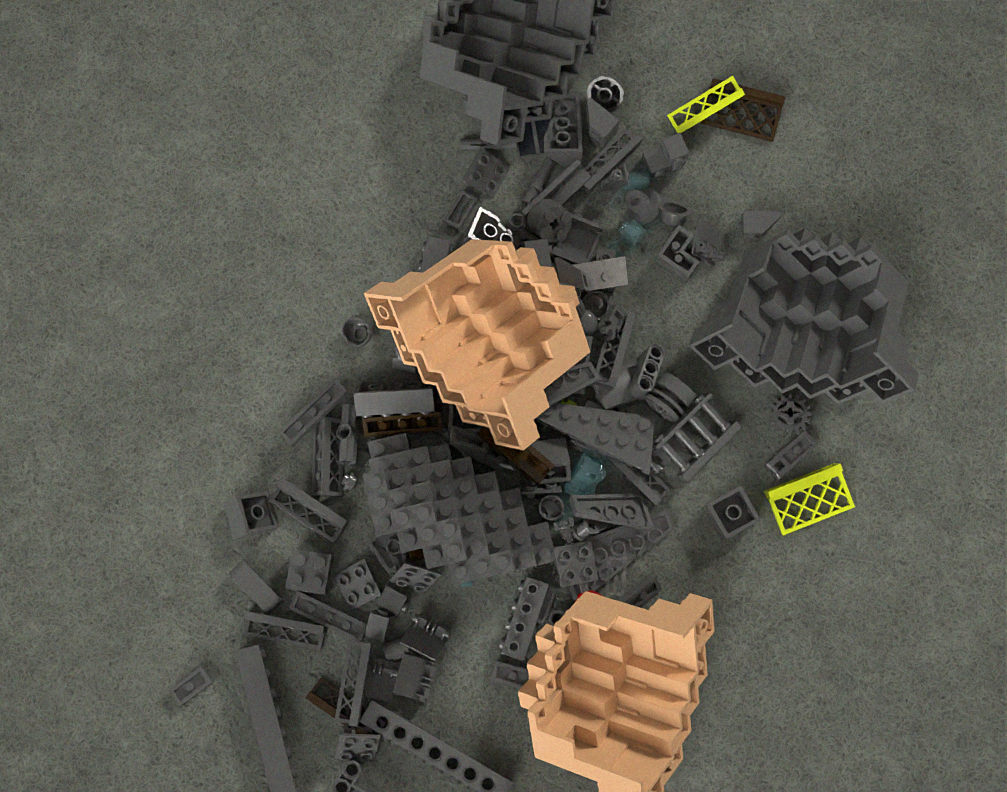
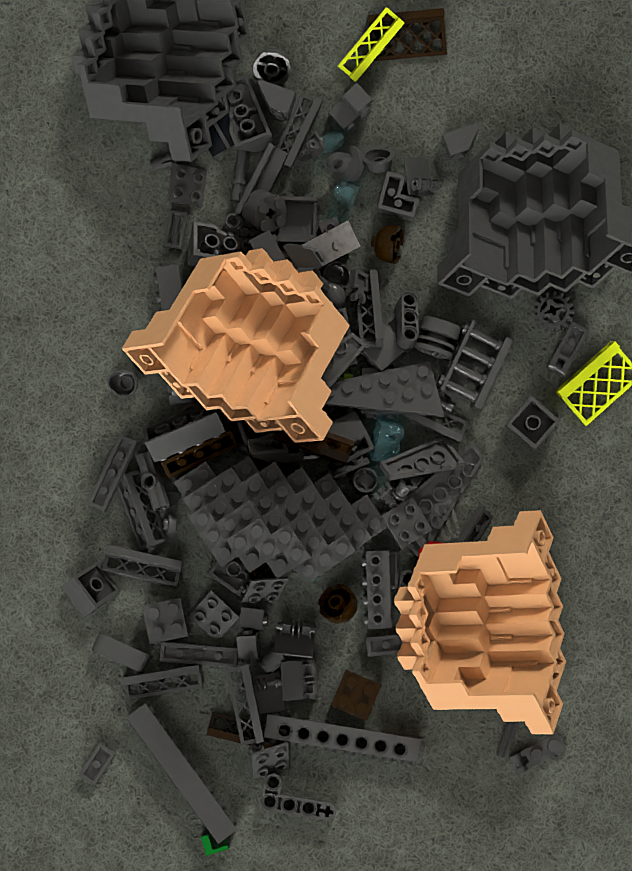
camera: 20 degrees left, 5 degrees up
(465, 714) = (356, 694): none -> dark brown brick
(480, 618) = (338, 604): none -> dark brown cylinder
(653, 291) = (387, 243): none -> dark brown cylinder

